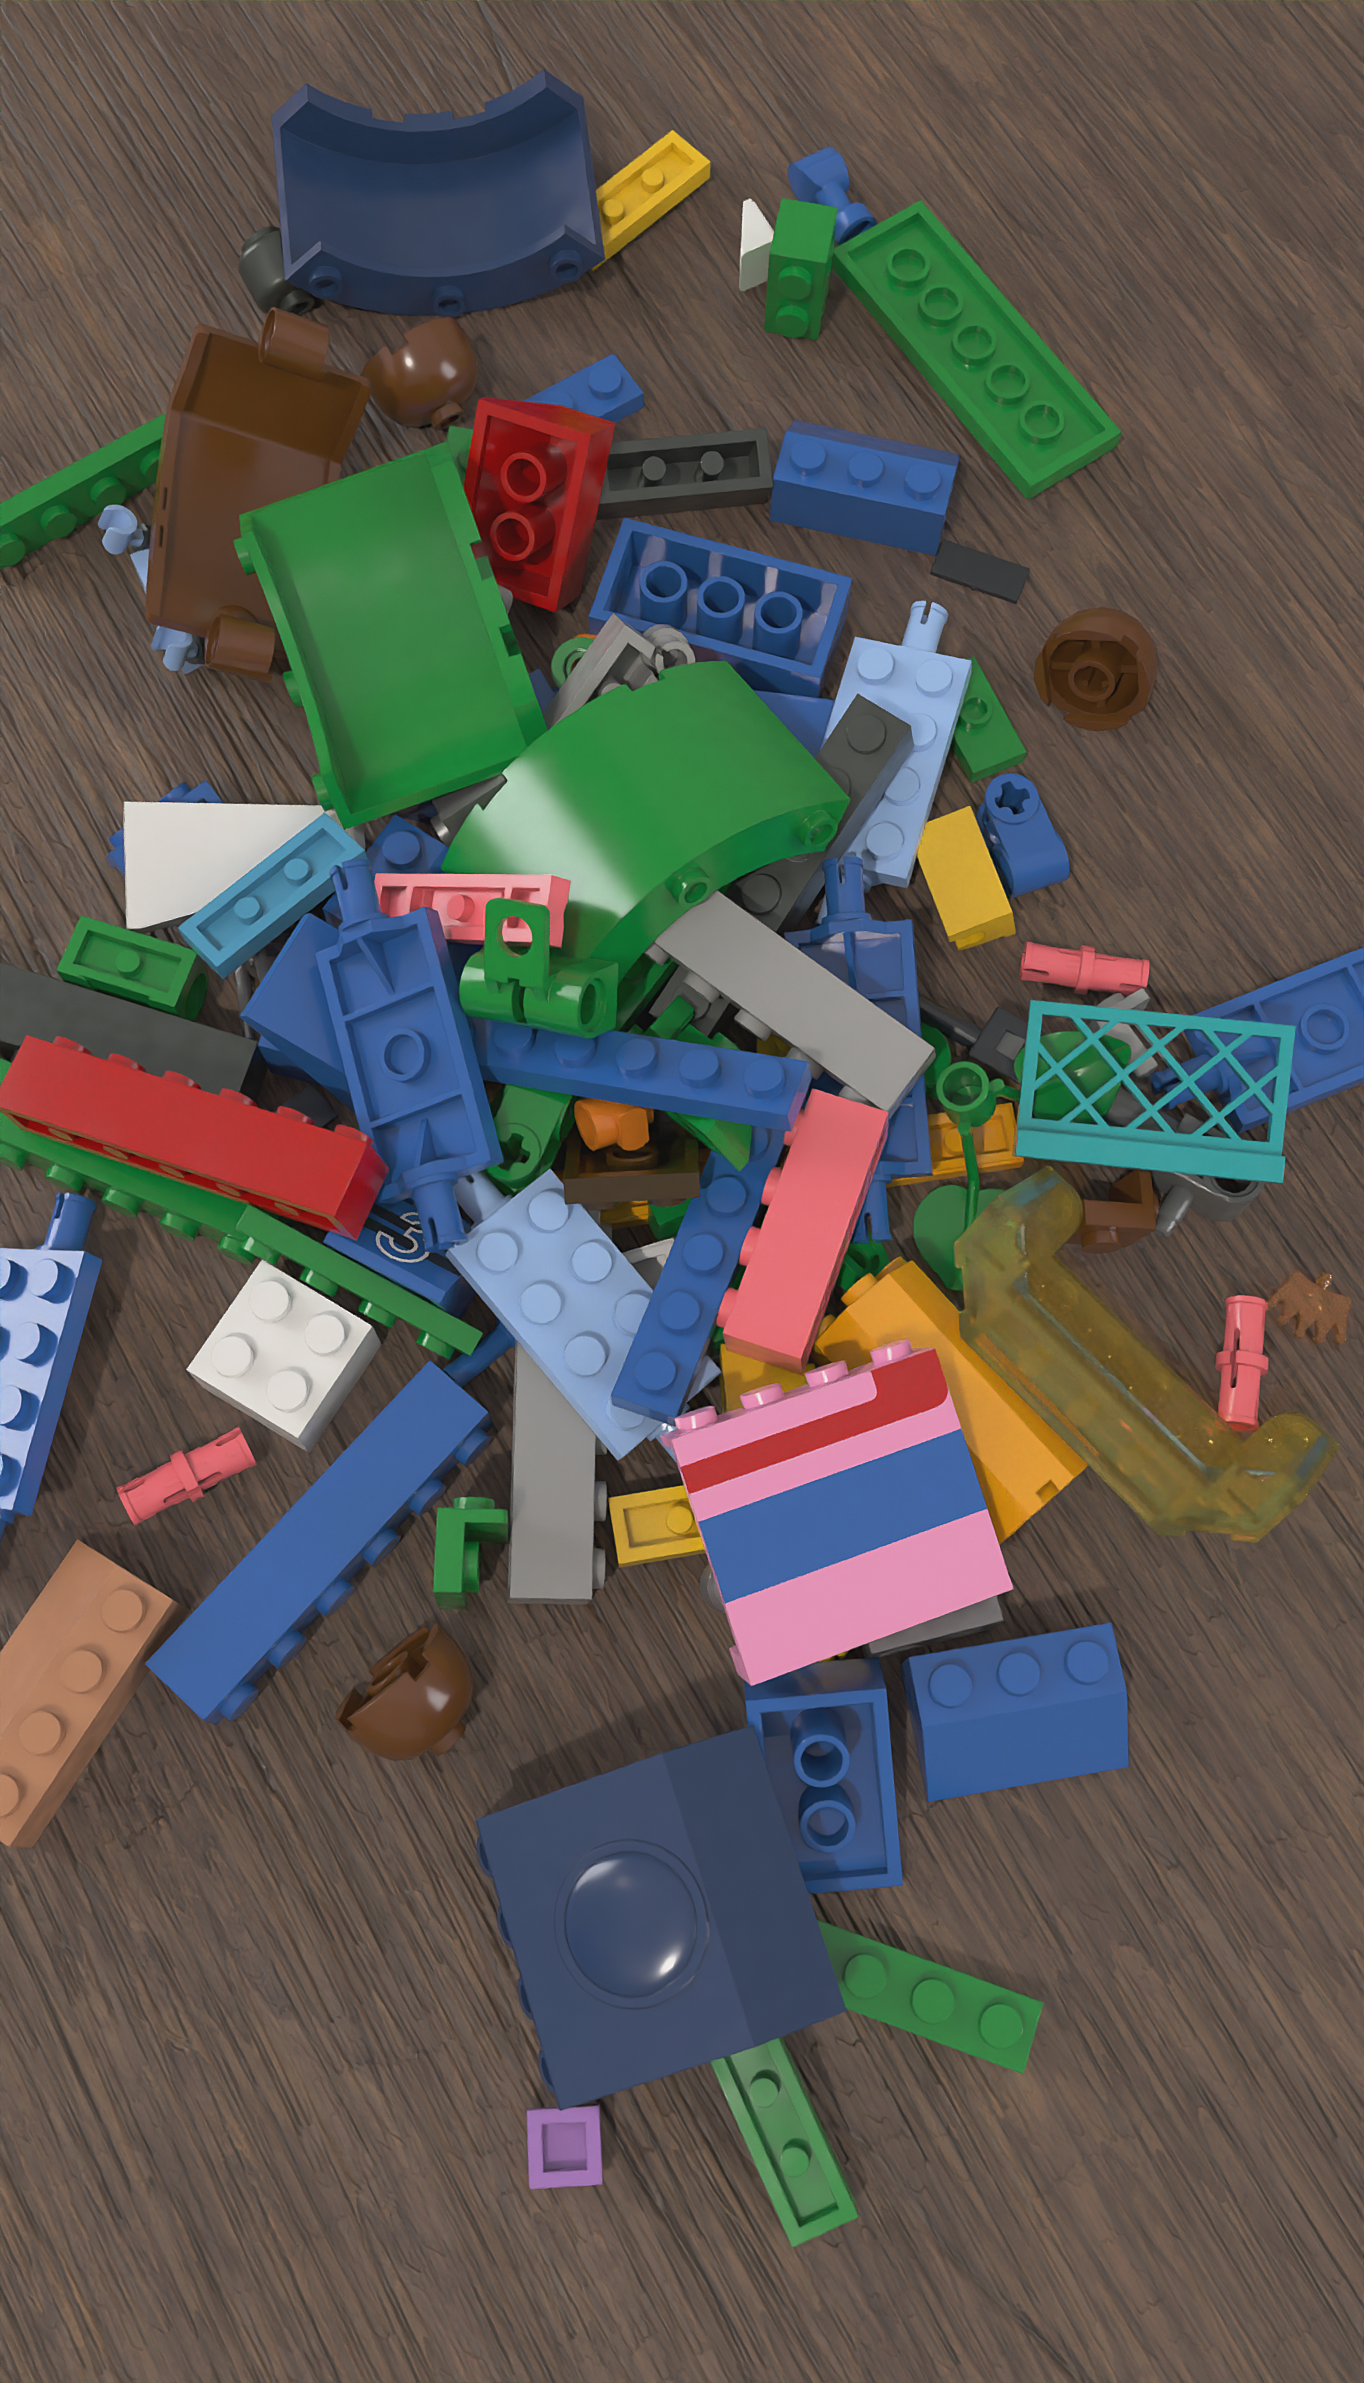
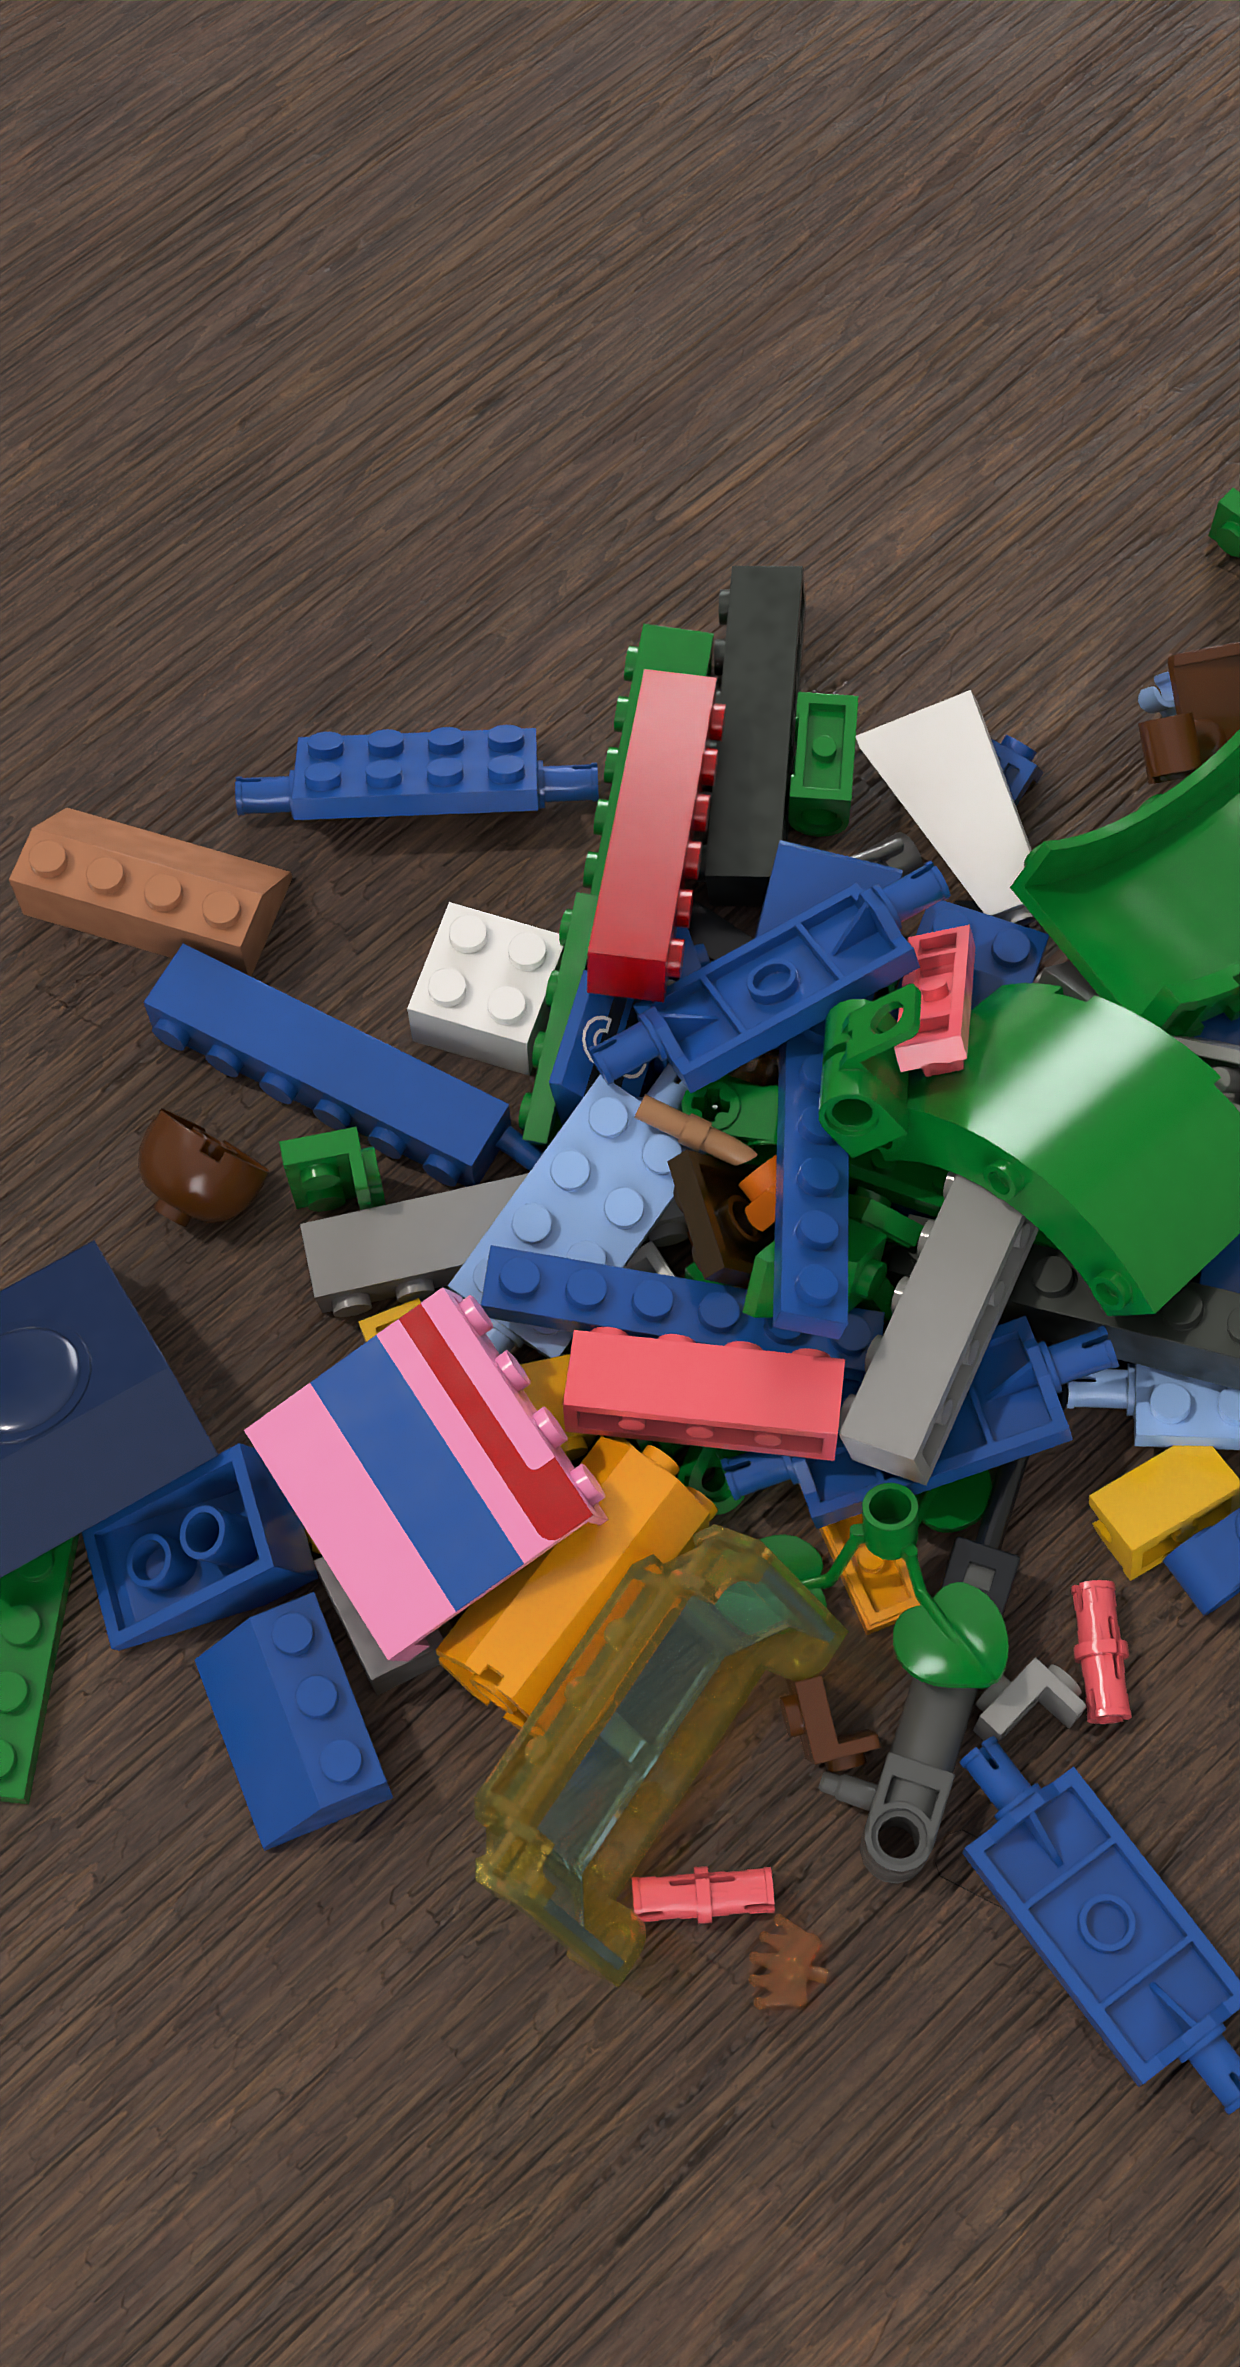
camera: 80 degrees right, 5 degrees down
(186, 1476) = (364, 940): coral pin -> none
(270, 896) = (911, 836): dark azure plate -> none
(538, 1173) = (693, 1131): none -> medium nougat piece
(1147, 1148) = (887, 1728): teal fence -> none

